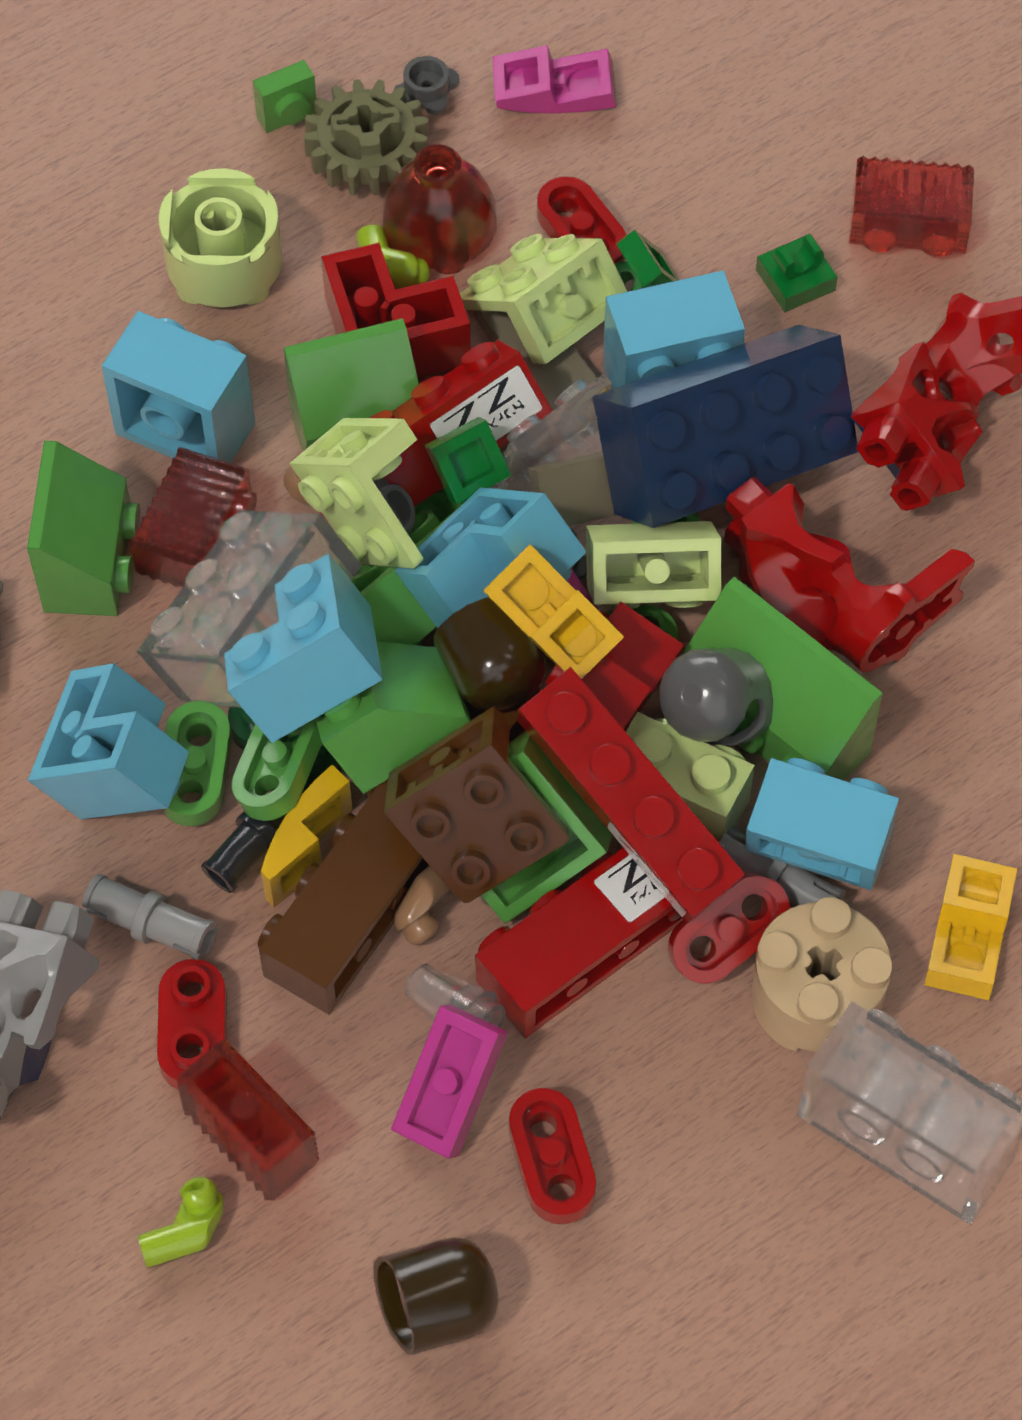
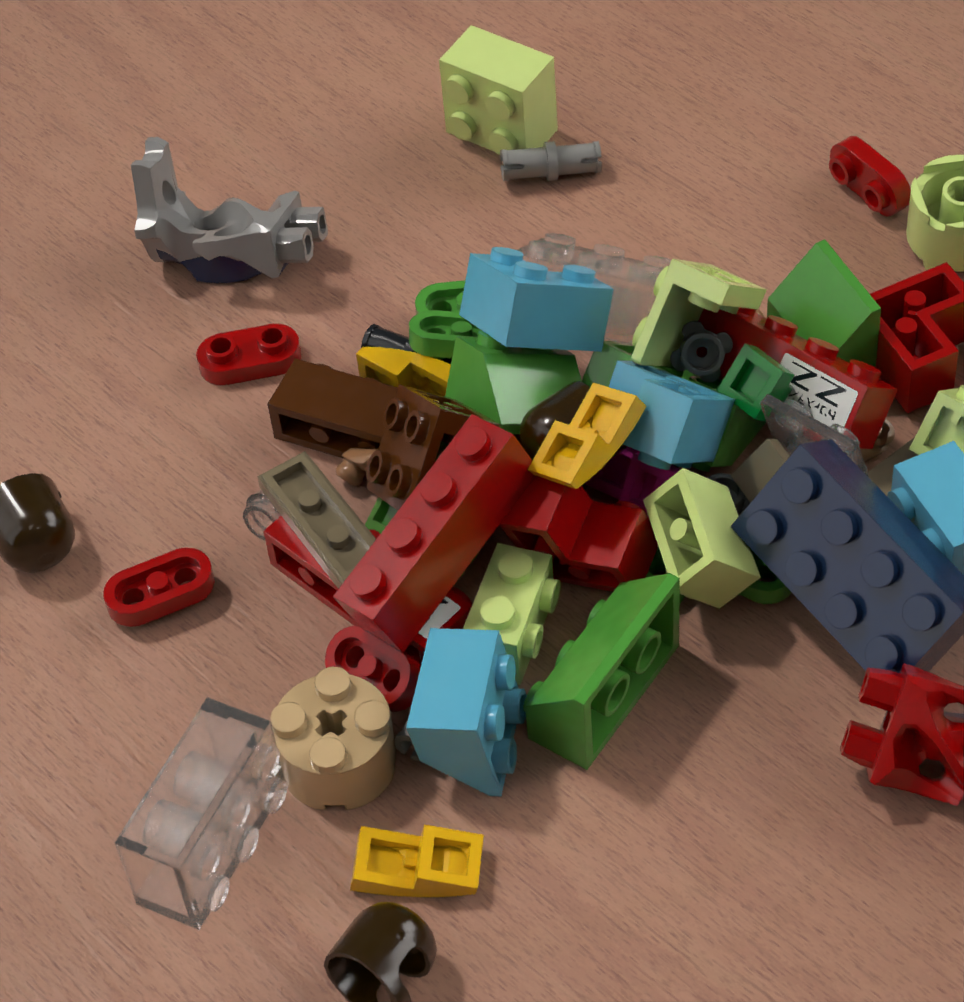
camera: 85 degrees right, 10 degrees down
(81, 534) = (643, 182): bright green slope -> none
(100, 320) = (869, 176): none -> red plate
(106, 747) = (441, 236): medium azure brick -> none
(149, 917) = (329, 307): light grey pin -> none
(178, 390) = (788, 208): medium azure brick -> none
(189, 514) = (689, 241): clear red brick -> none
(191, 1228) = (94, 386): lime arm -> none
(247, 1120) = (157, 383): clear red brick -> none
(449, 1081) = (206, 500): dark pink plate -> none
(538, 939) = (317, 515): none -> dark tan tile
(709, 693) = (575, 587): dark grey helmet -> none
(816, 586) = (721, 678): red hips -> none

